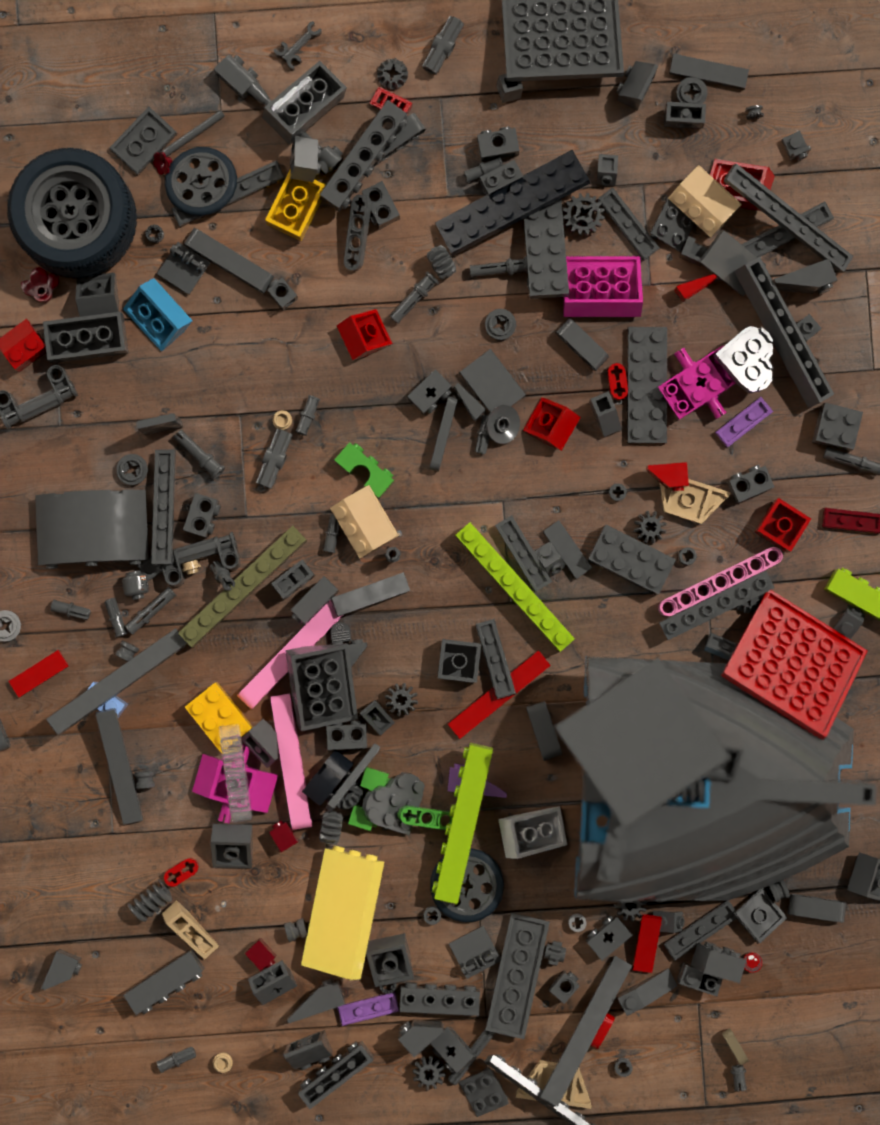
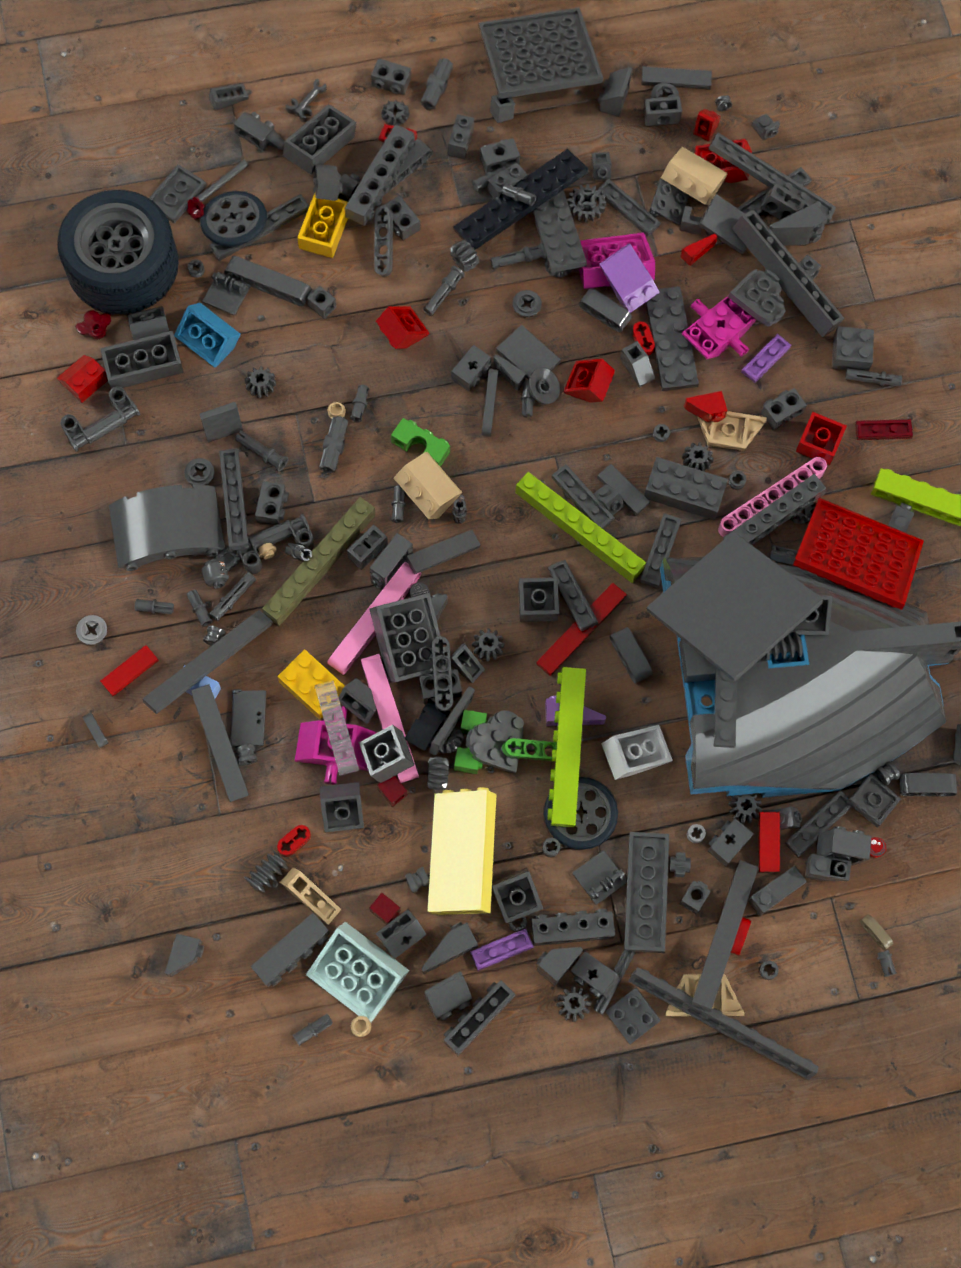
camera: 10 degrees left, 15 degrees down
(151, 733) = (246, 723): none -> dark grey door
(206, 36) = (219, 101): none -> dark grey slope
(214, 375) = (260, 388): none -> dark grey gear
(226, 1011) = (357, 972): none -> light aqua slope
(281, 806) = (386, 753): none -> dark grey brick
(349, 729) = (442, 674): none -> dark grey beam
(397, 25) = (392, 73): none -> dark grey brick
(459, 115) = (461, 136): none -> dark grey brick
(509, 202) = (519, 194): none -> dark grey axle
(594, 622) = (660, 549): none -> dark grey plate
(612, 319) = (629, 278): none -> medium lavender slope
(731, 136) = (706, 124): none -> red slope
(794, 249) = (781, 202): none -> dark grey brick

